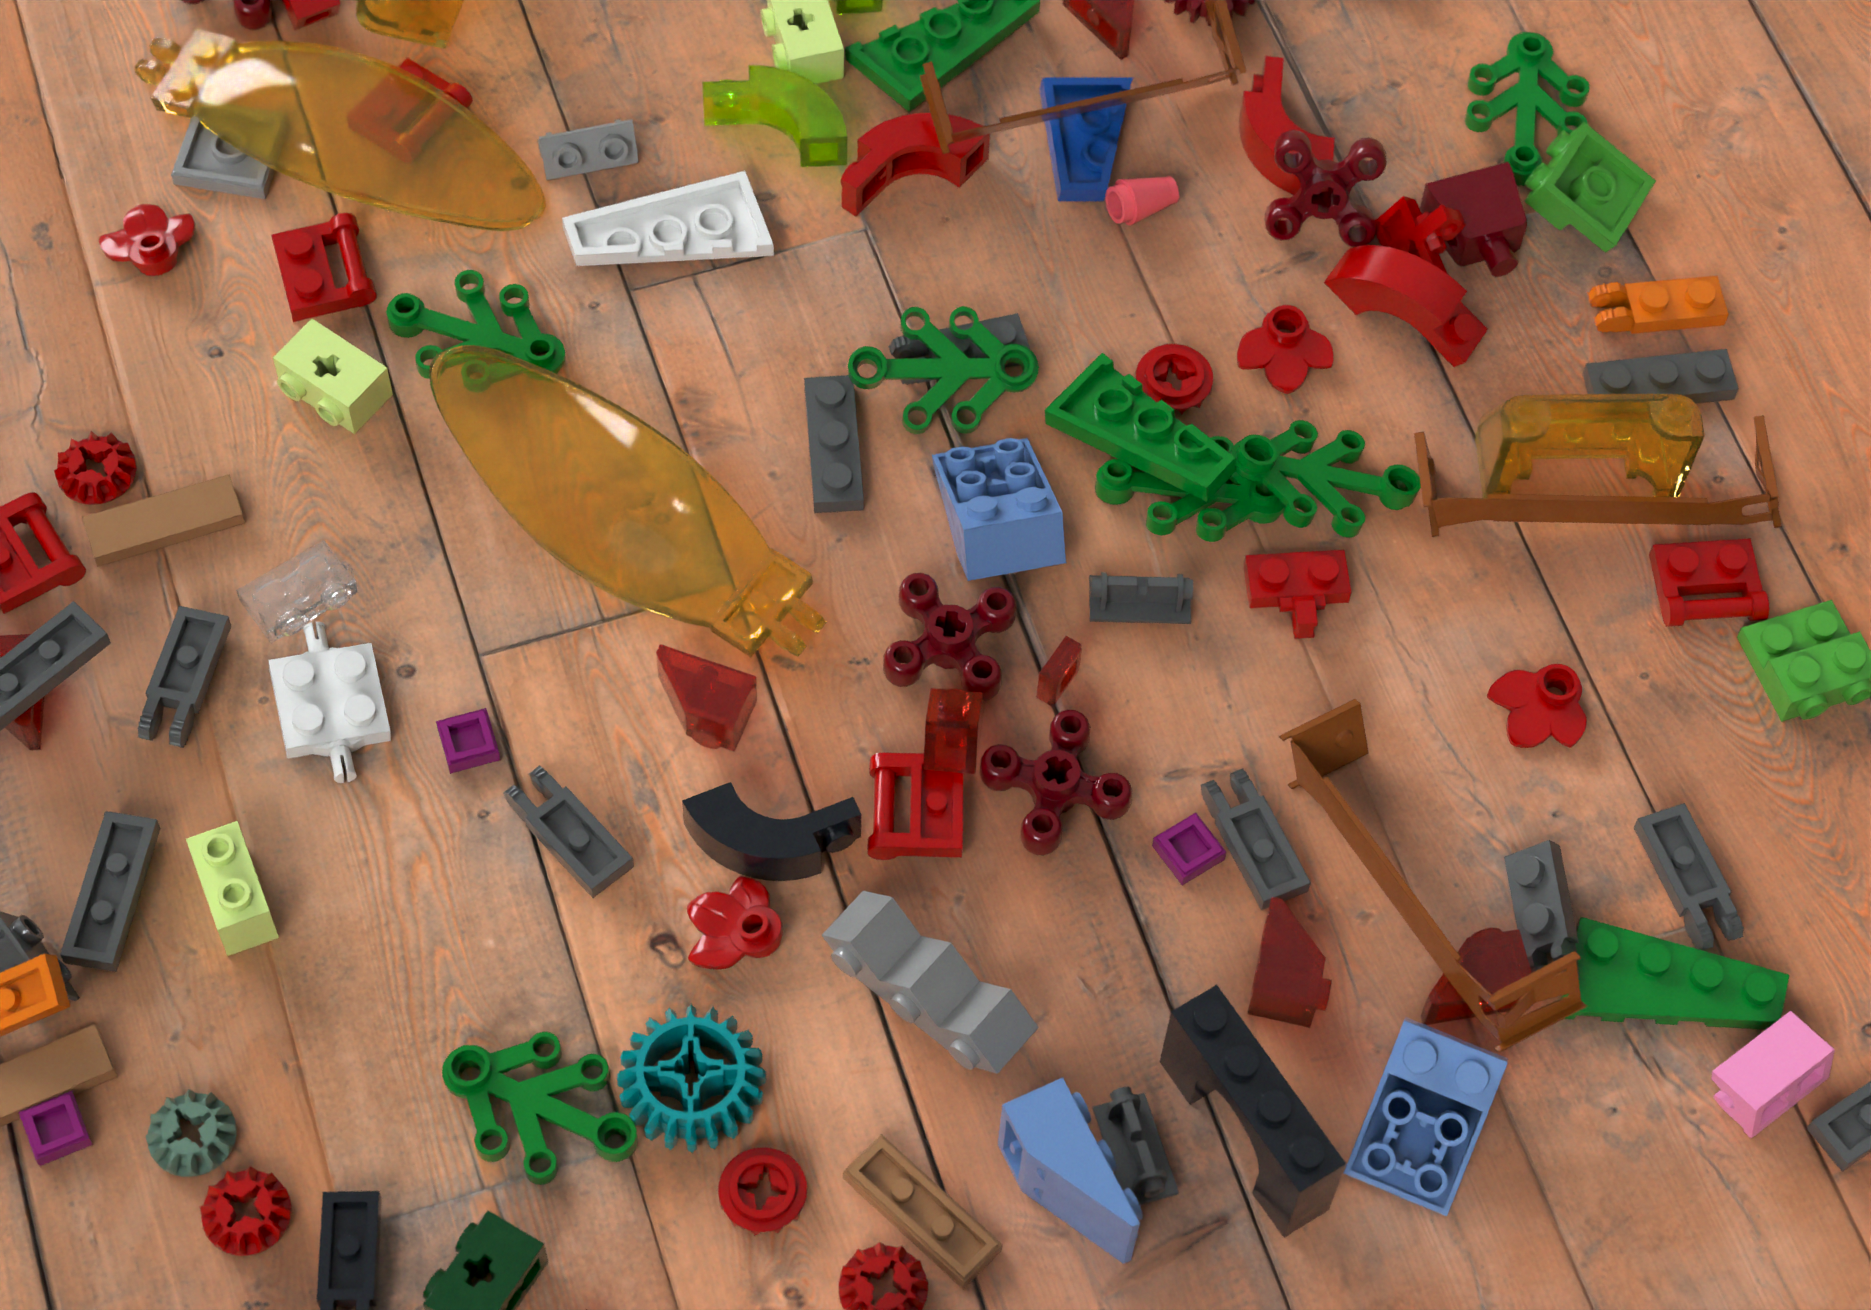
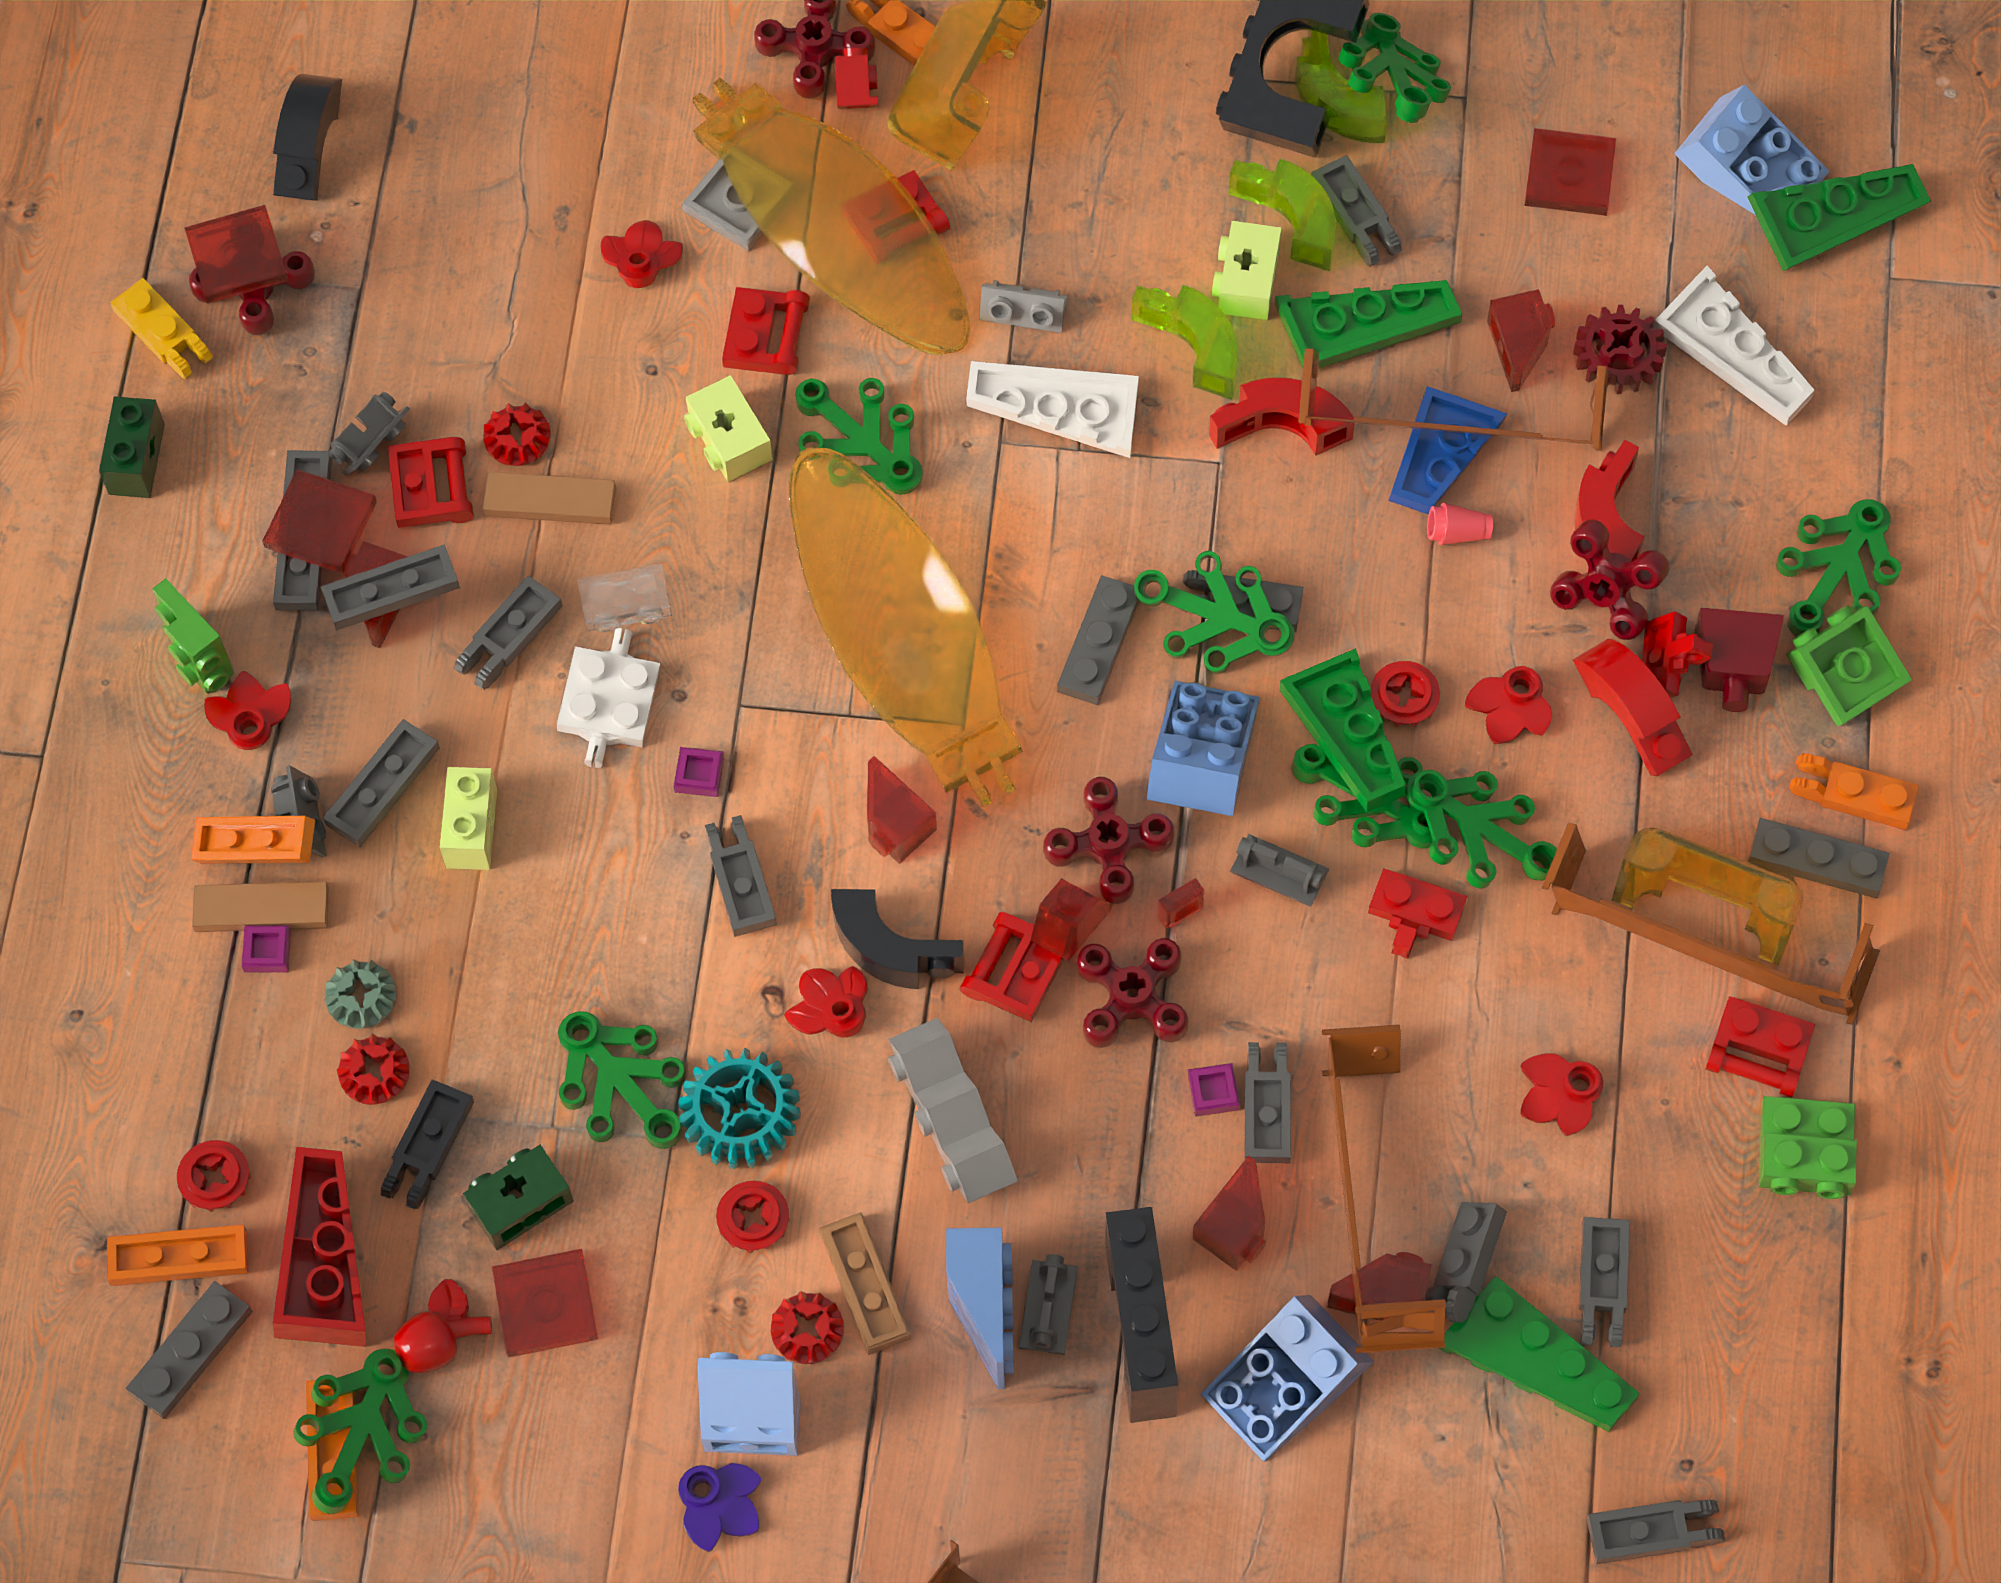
camera: 30 degrees right, 5 degrees up
(1772, 1073) = (1579, 1464): bright pink hinge -> none

